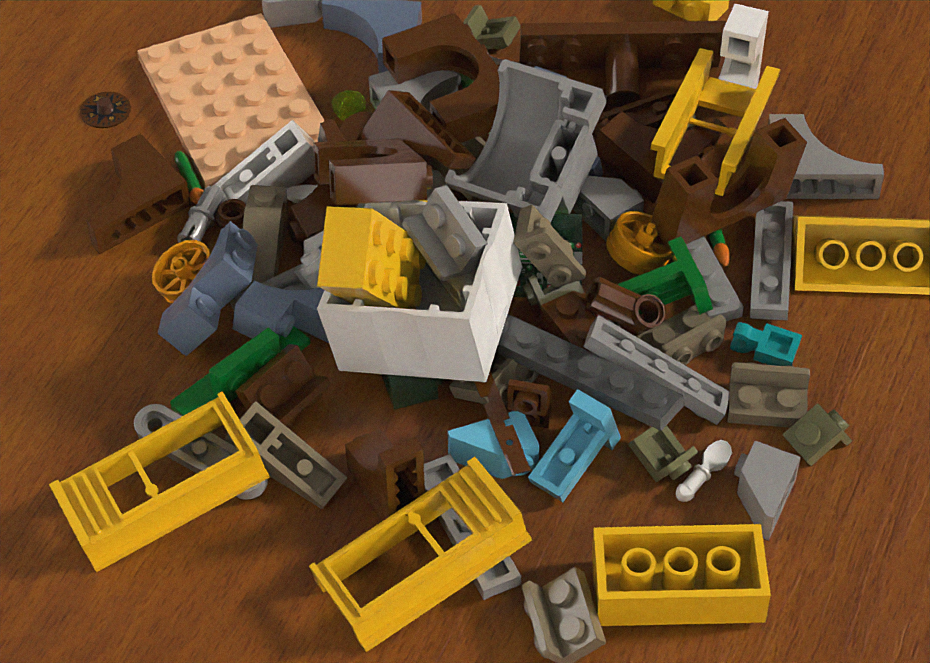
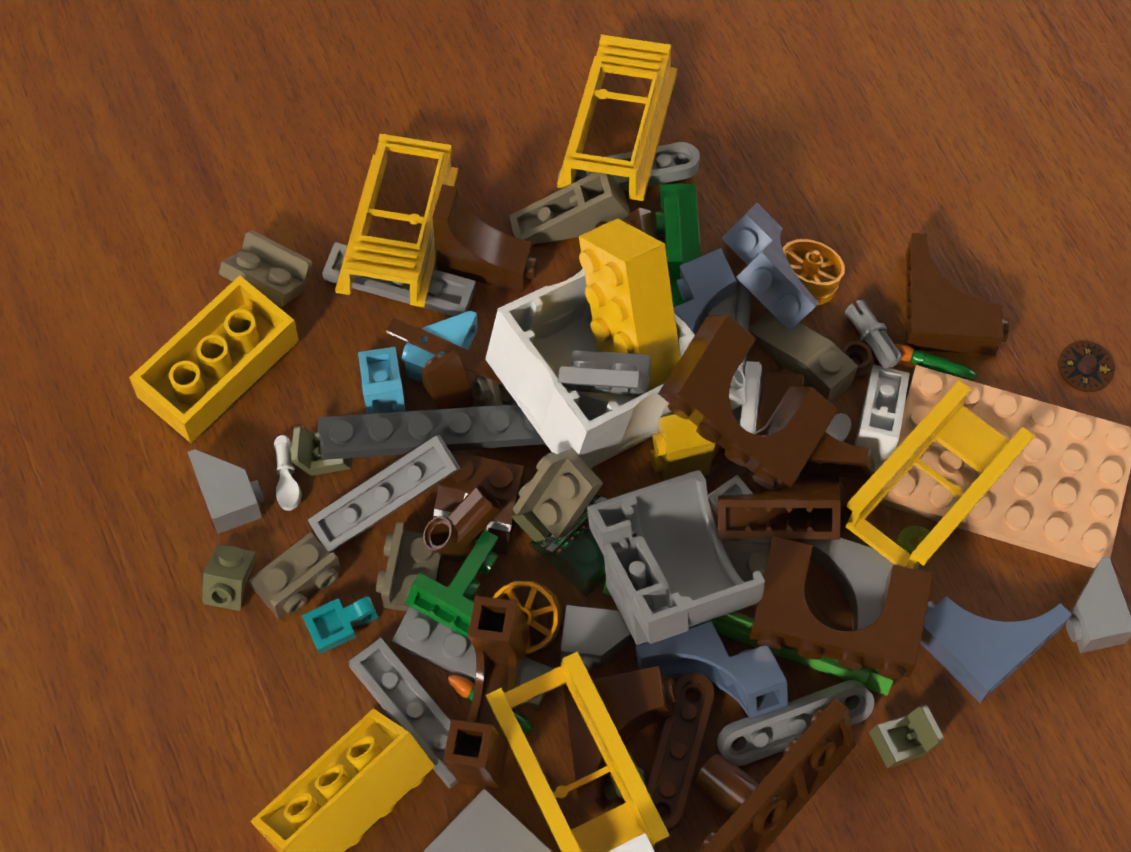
camera: 130 degrees right, 15 degrees up
(248, 76) = (966, 438): none -> yellow piece

